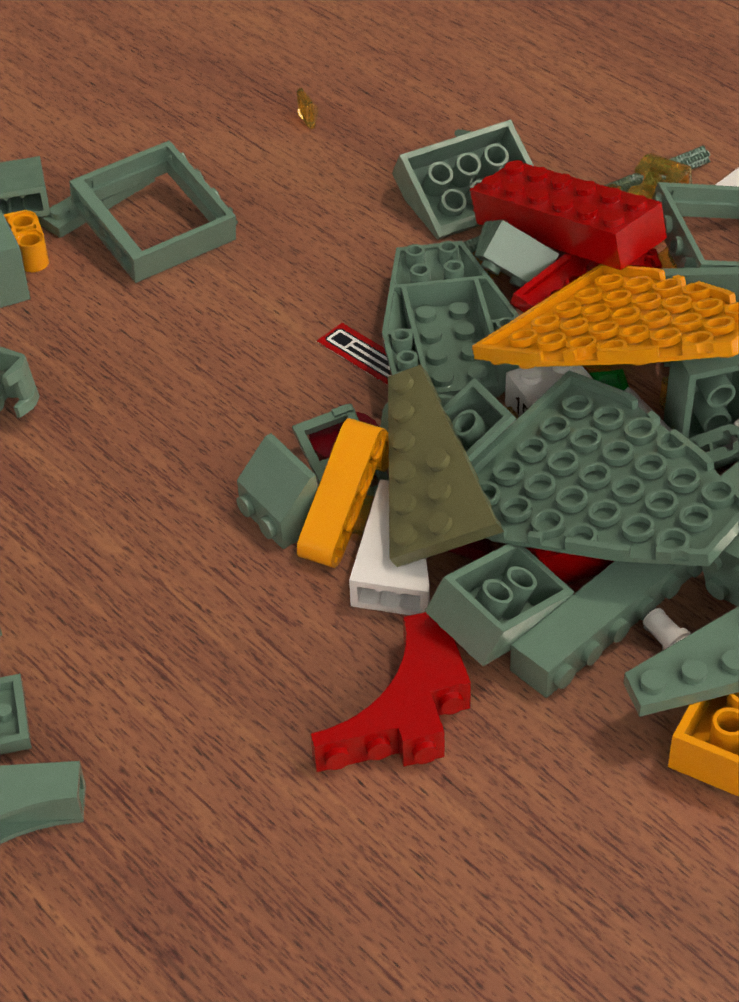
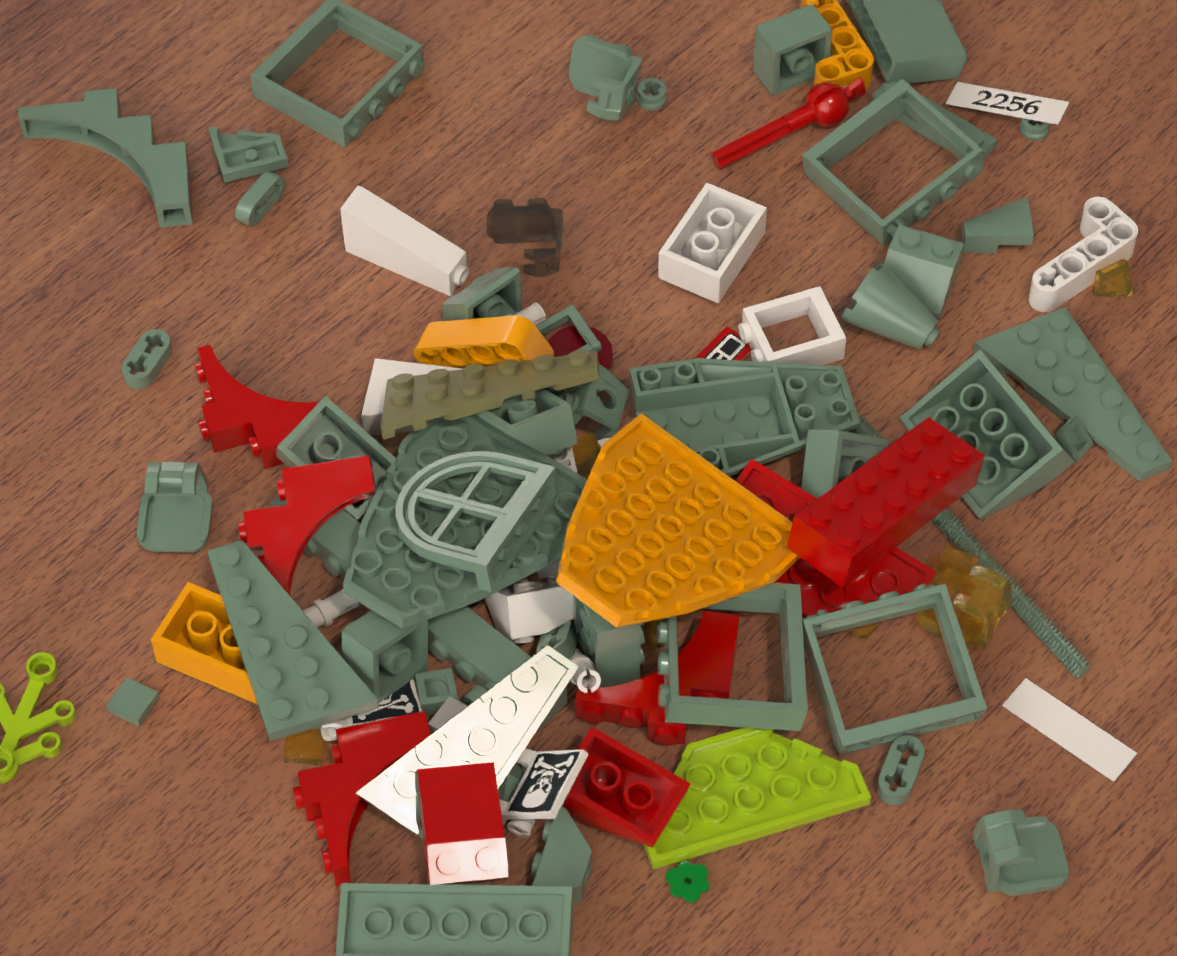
camera: 85 degrees right, 10 degrees up
(67, 252) = (824, 104): none -> red piece
(74, 703) = (260, 198): none -> sand green beam
(93, 148) = (1007, 103): none -> white sticker
(119, 140) = (1034, 132): none -> sand green bush
(178, 565) = (400, 243): none -> white slope
(186, 445) = (529, 224): none -> clear smoke piece
(228, 327) = (712, 242): none -> white brick
(234, 164) = (1001, 226): none -> sand green slope
(280, 113) = (1108, 238): none -> white beam
(280, 208) = (925, 265): none -> sand green slope
(300, 825) = (151, 361): none -> sand green beam
(323, 224) = (891, 310): none -> sand green cone
(339, 267) = (811, 302): none -> white window
(374, 150) = (1070, 380): none -> sand green wing
(546, 776) = (175, 508): none -> sand green piece
(571, 610) = (312, 498): none -> red arch
(622, 417) = (511, 524): none -> sand green window

